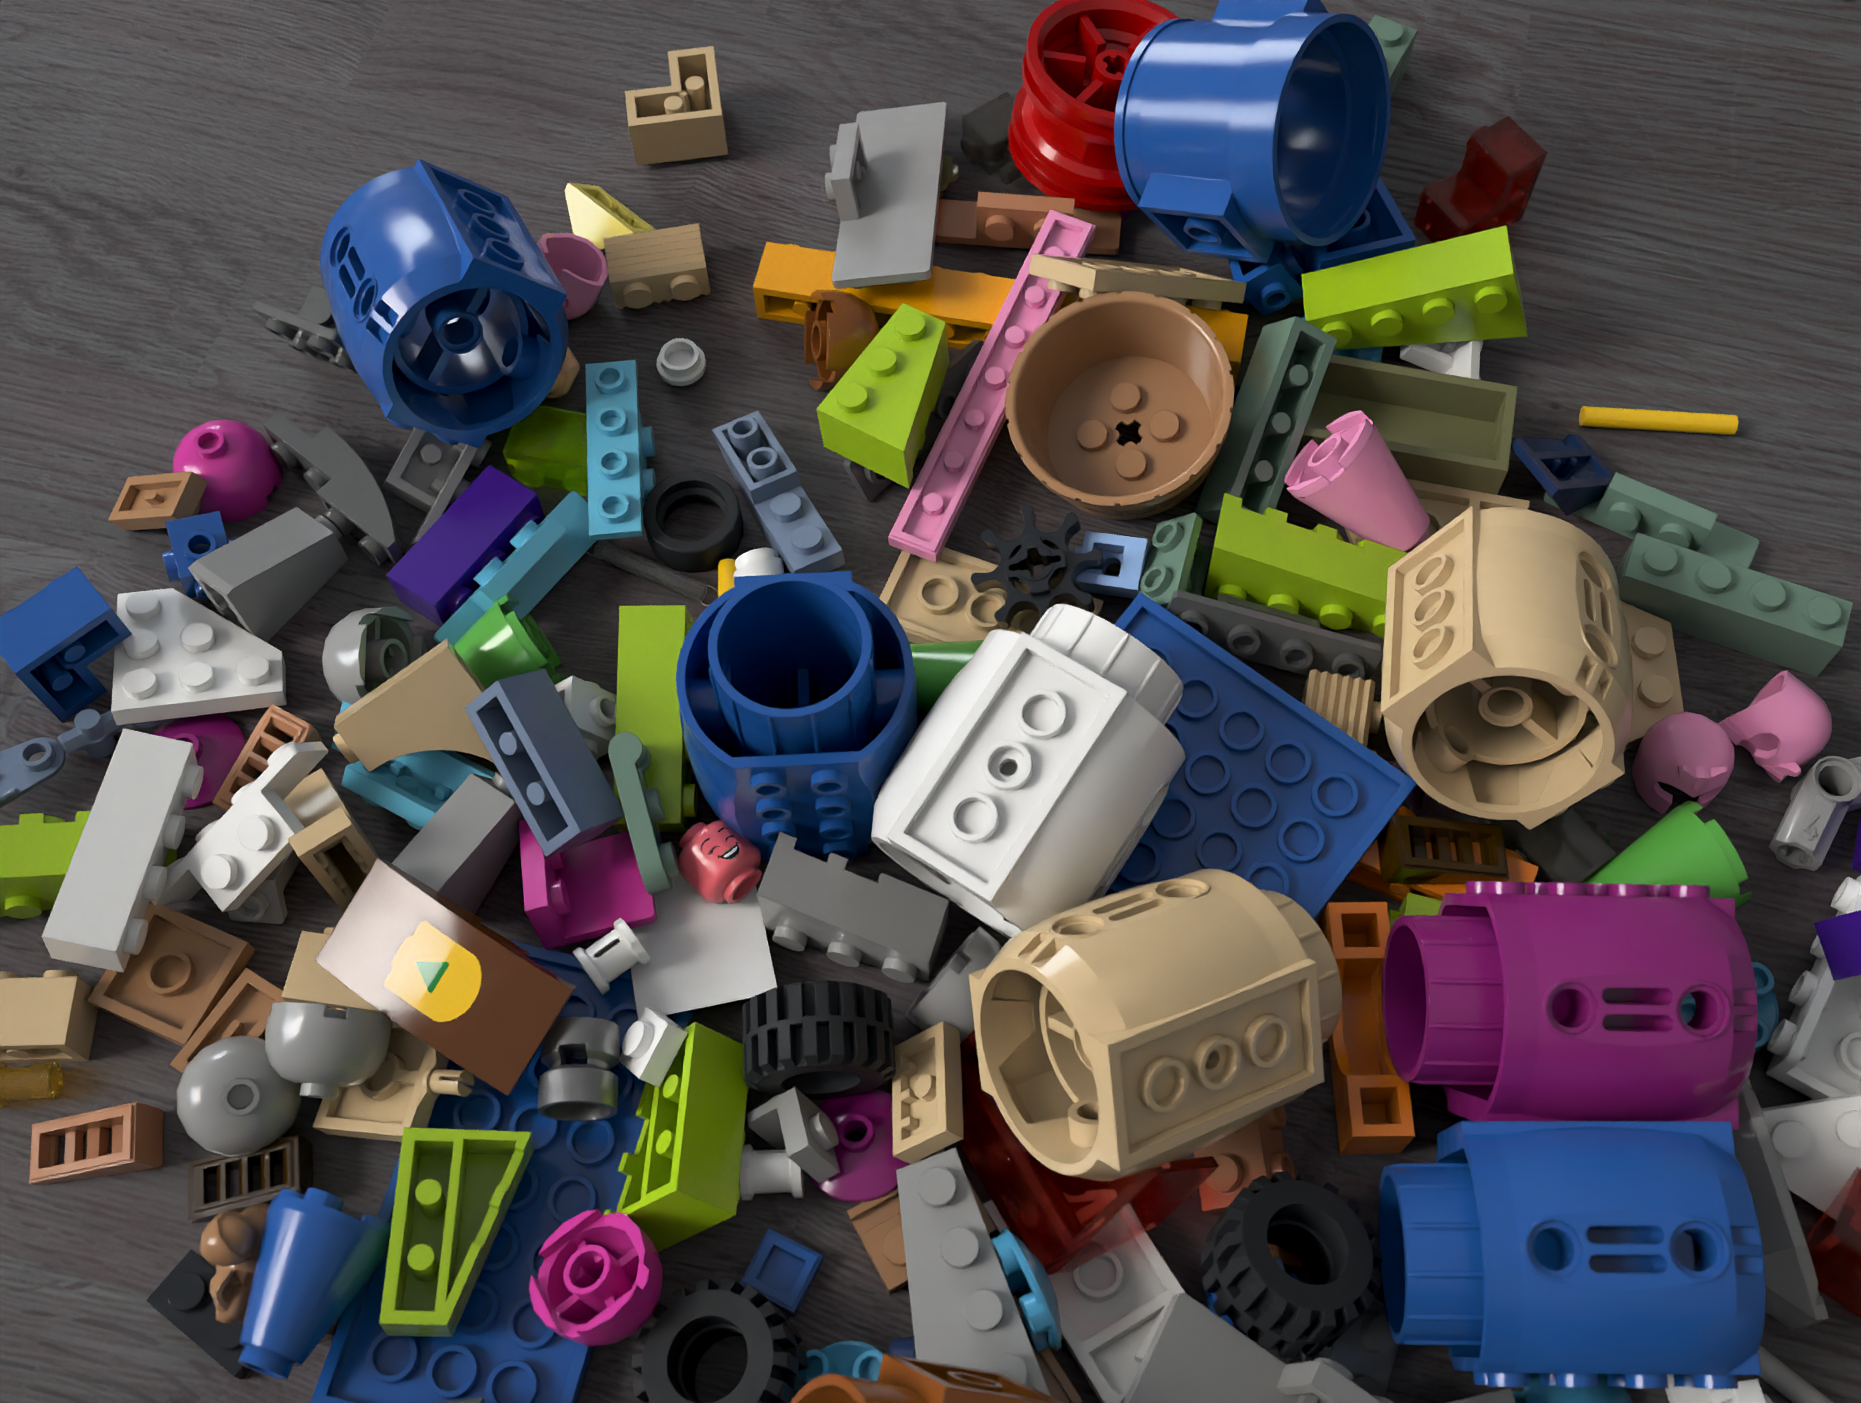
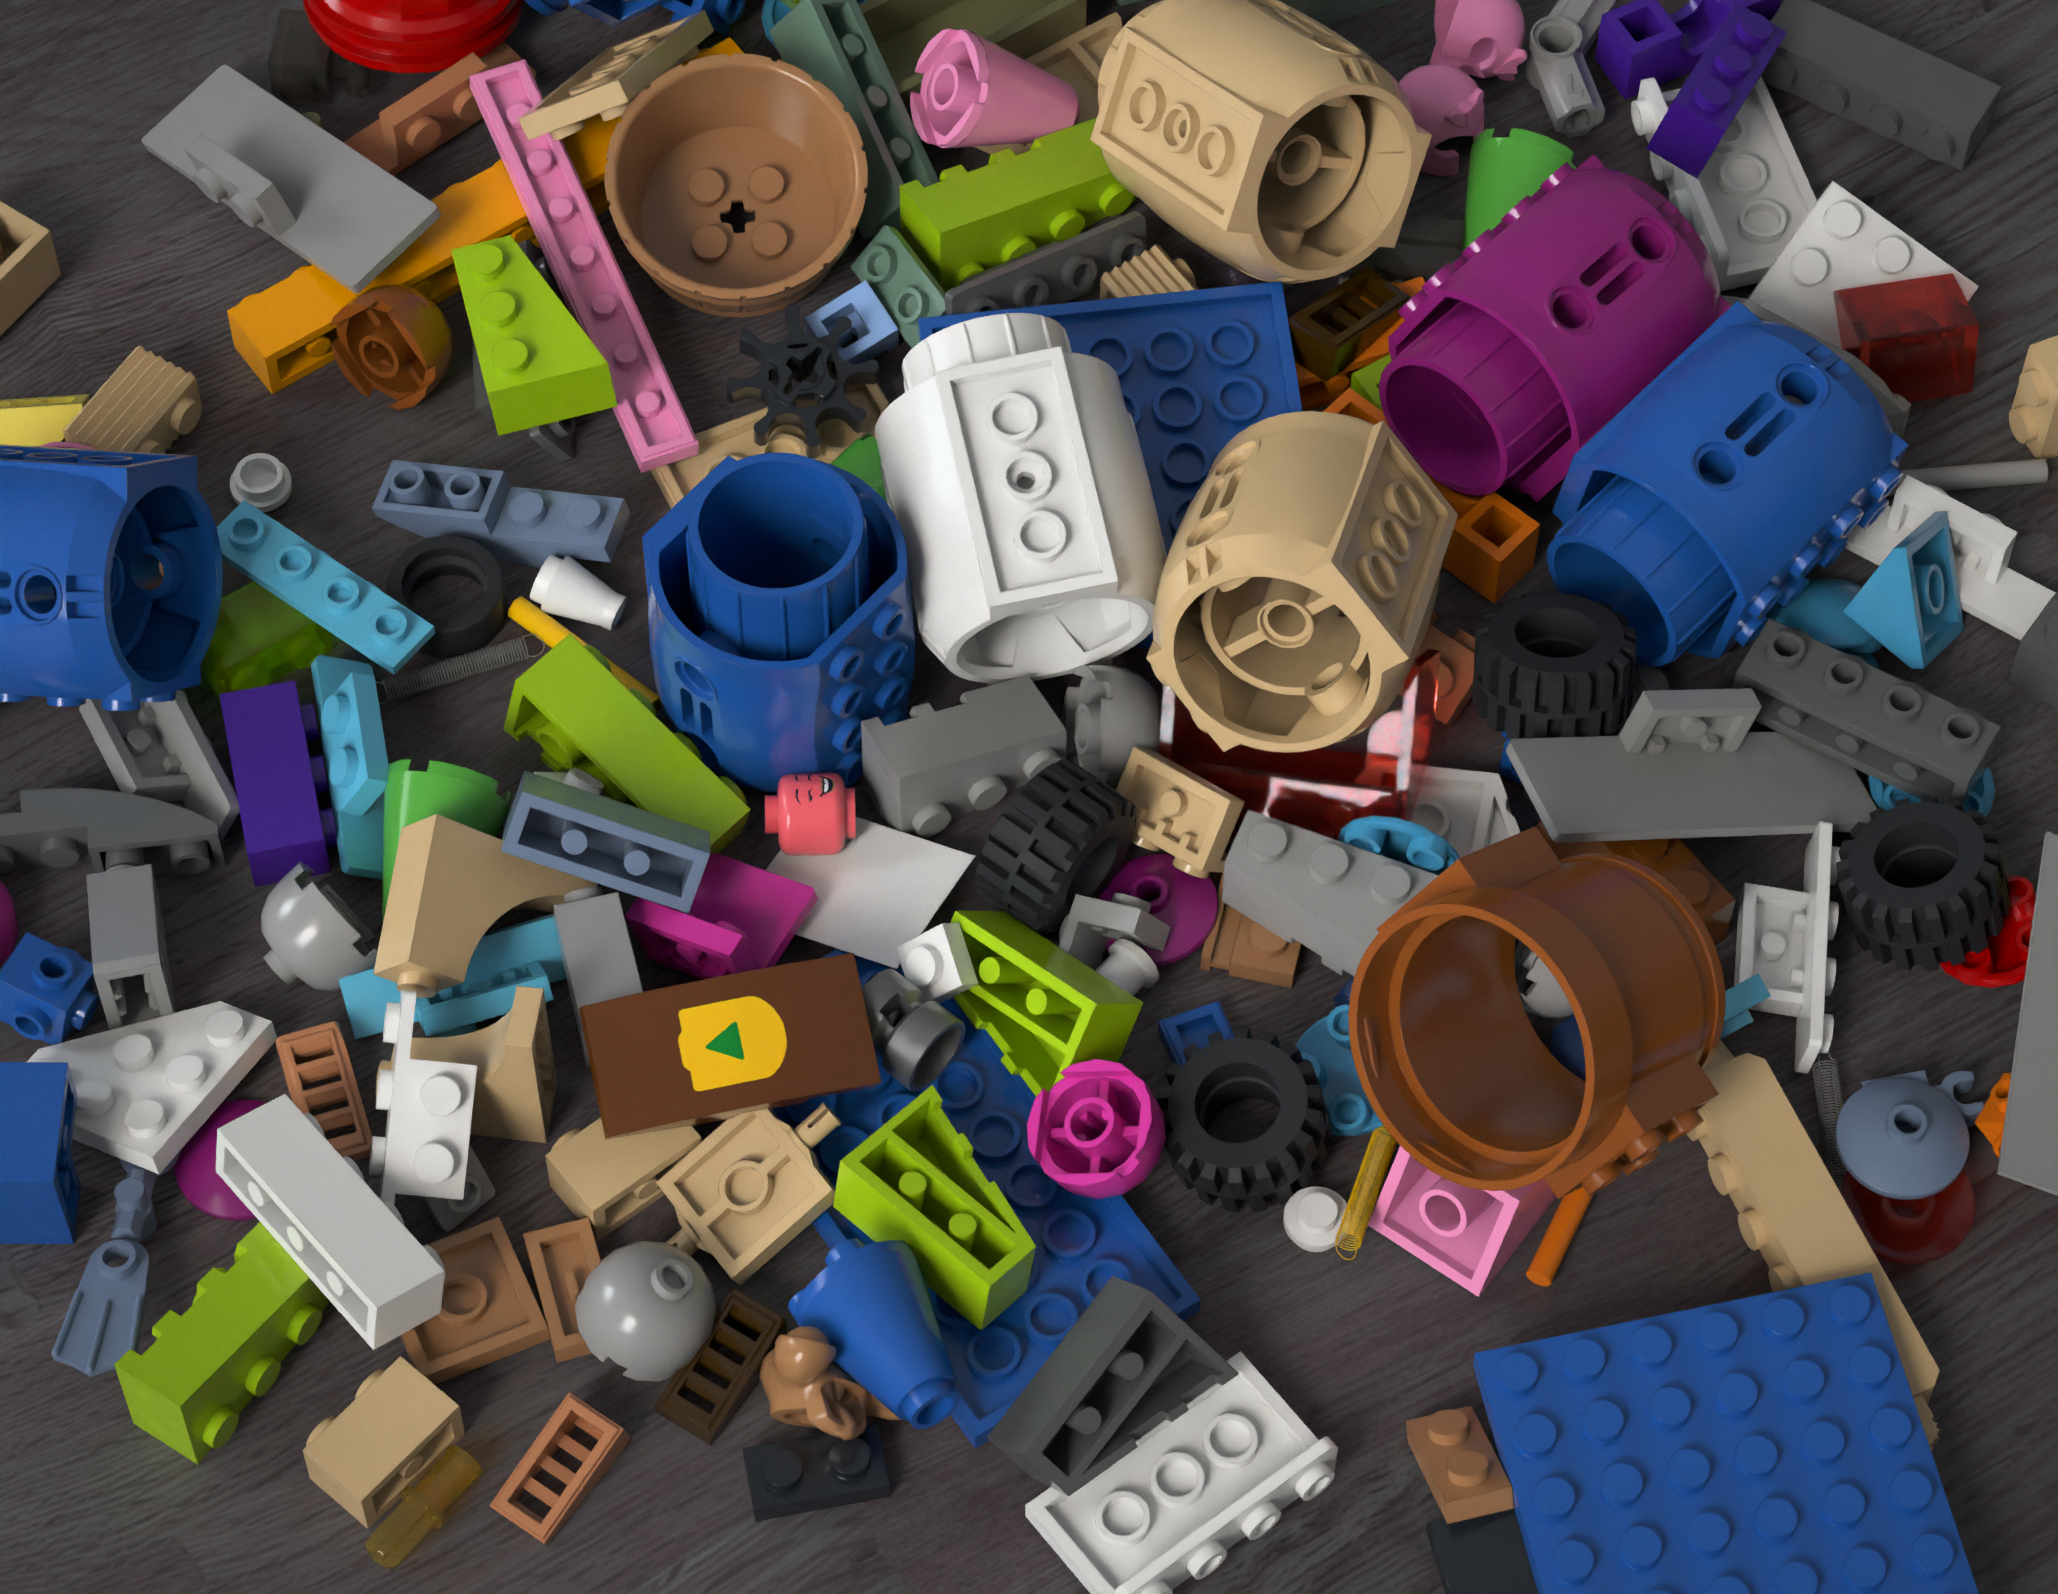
camera: 50 degrees left, 5 degrees down
(326, 1046) = (691, 1185): light grey cylinder -> none
(611, 955) = (817, 938): white bush -> none
(642, 811) = (762, 840): sand green plate -> none

